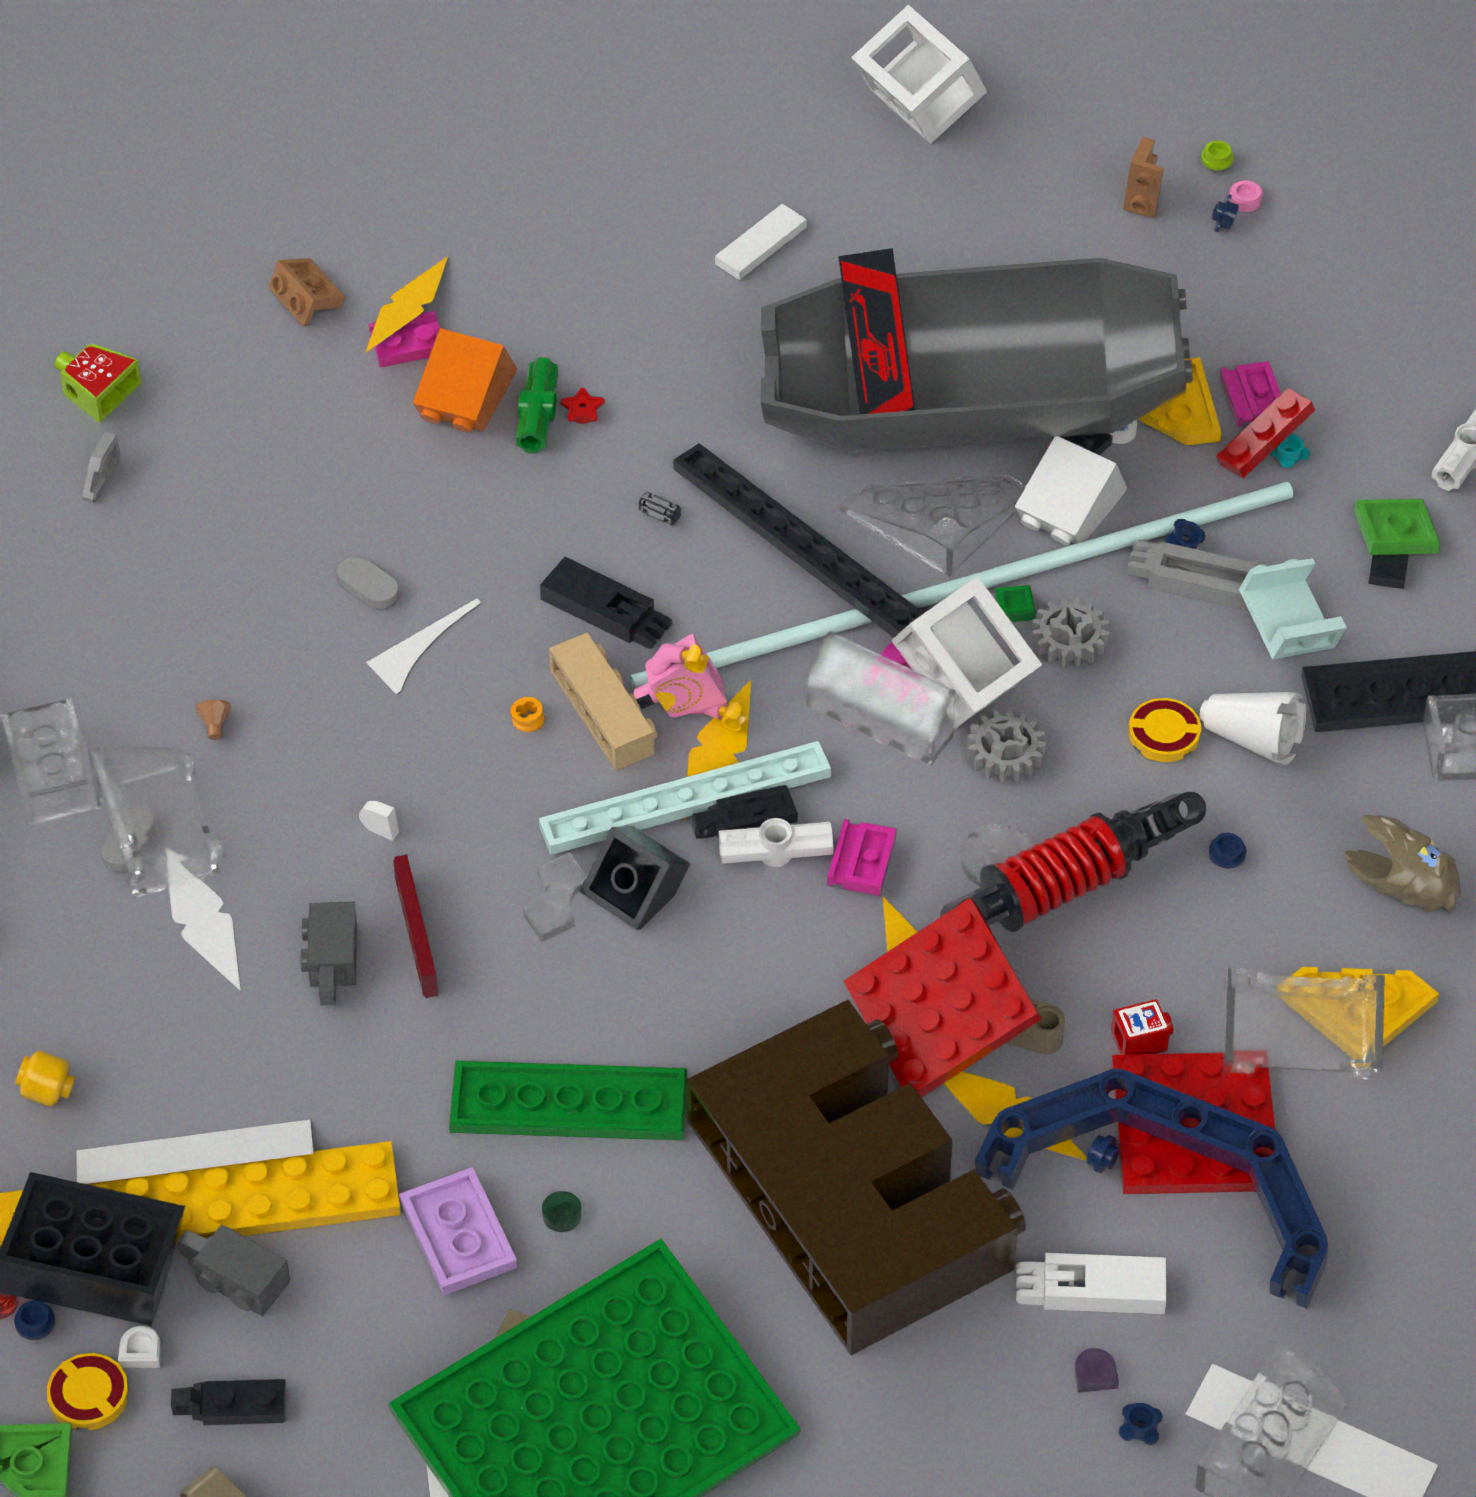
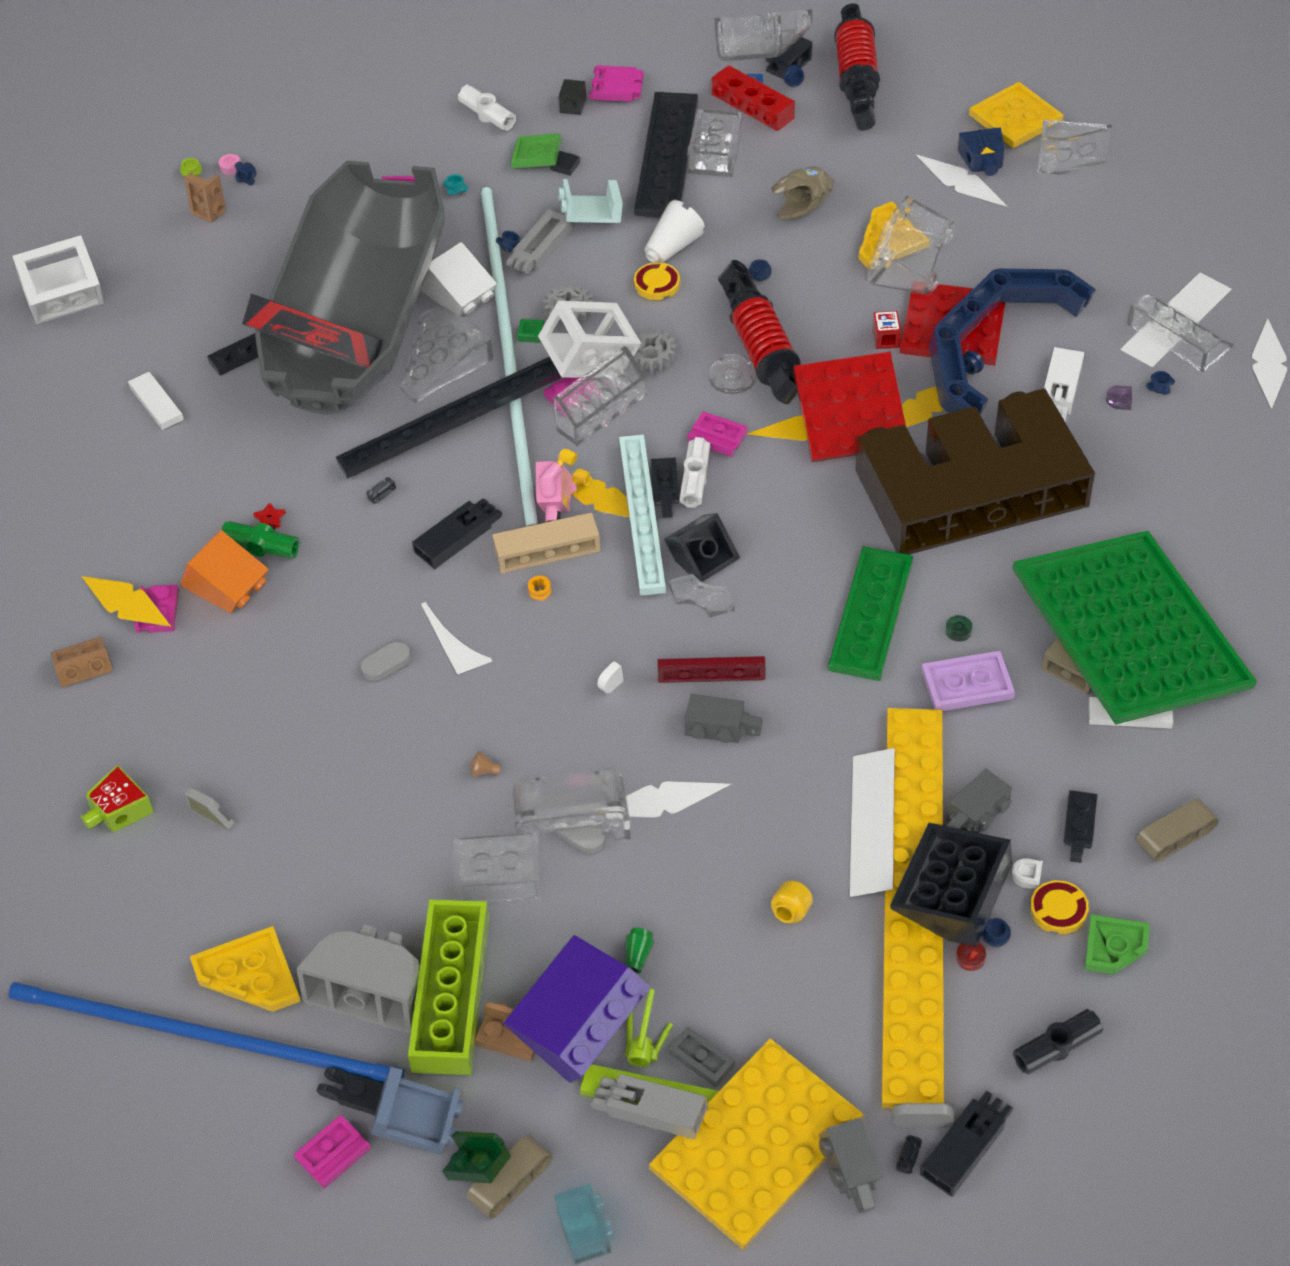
camera: 75 degrees left, 0 degrees up
(1265, 433) = (452, 200): red plate -> none

